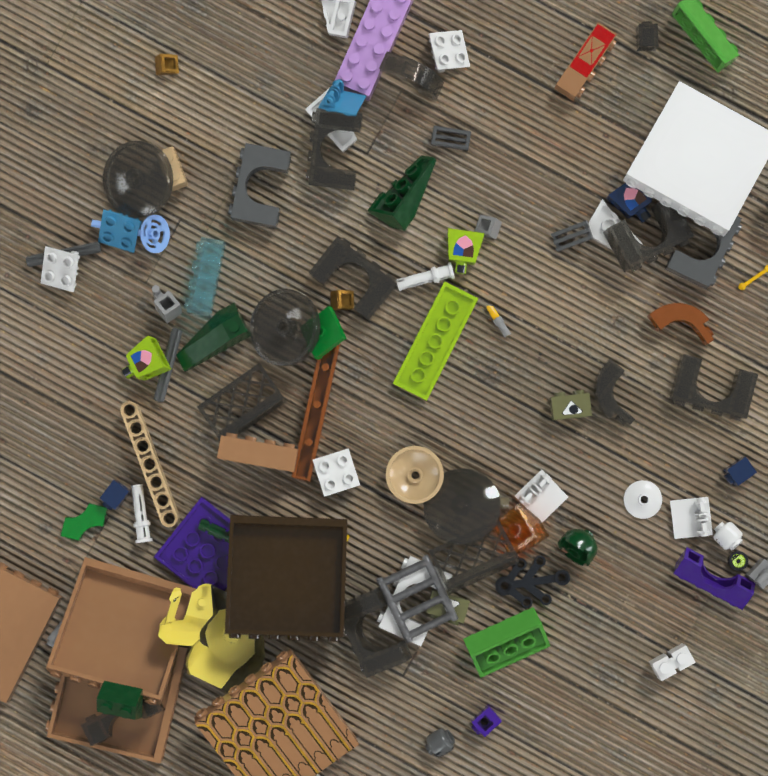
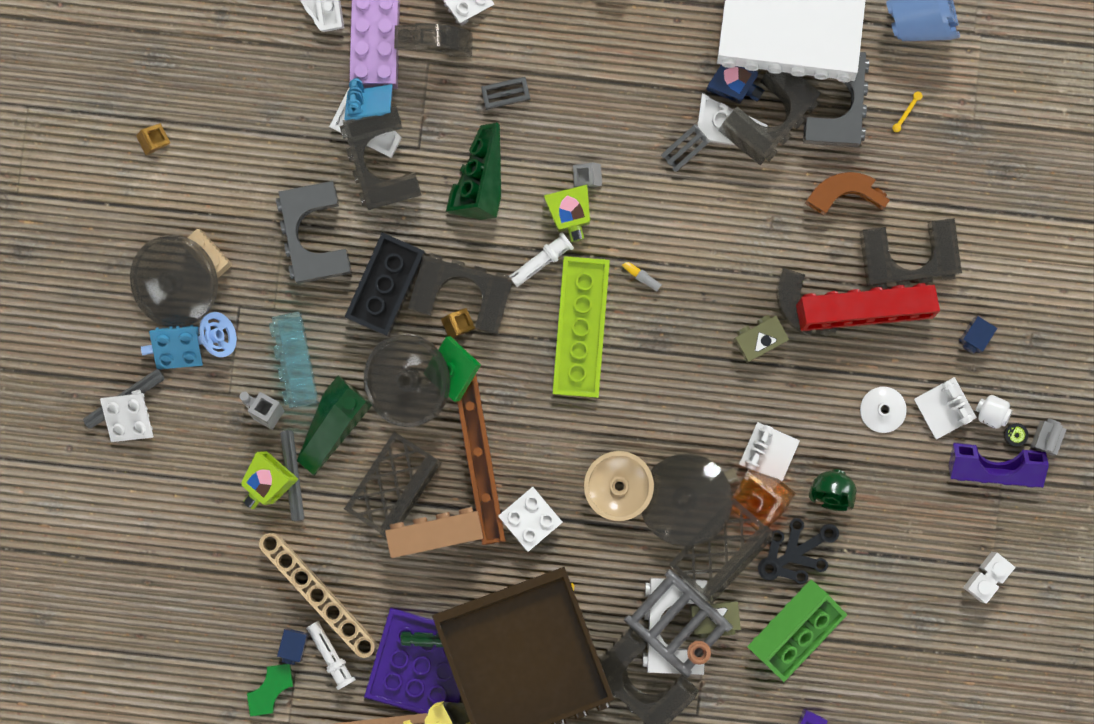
camera: 25 degrees left, 0 degrees up
(298, 247) = (385, 284): none -> black brick
(423, 634) = (706, 652): none -> nougat plate
(663, 415) = (867, 307): none -> red brick

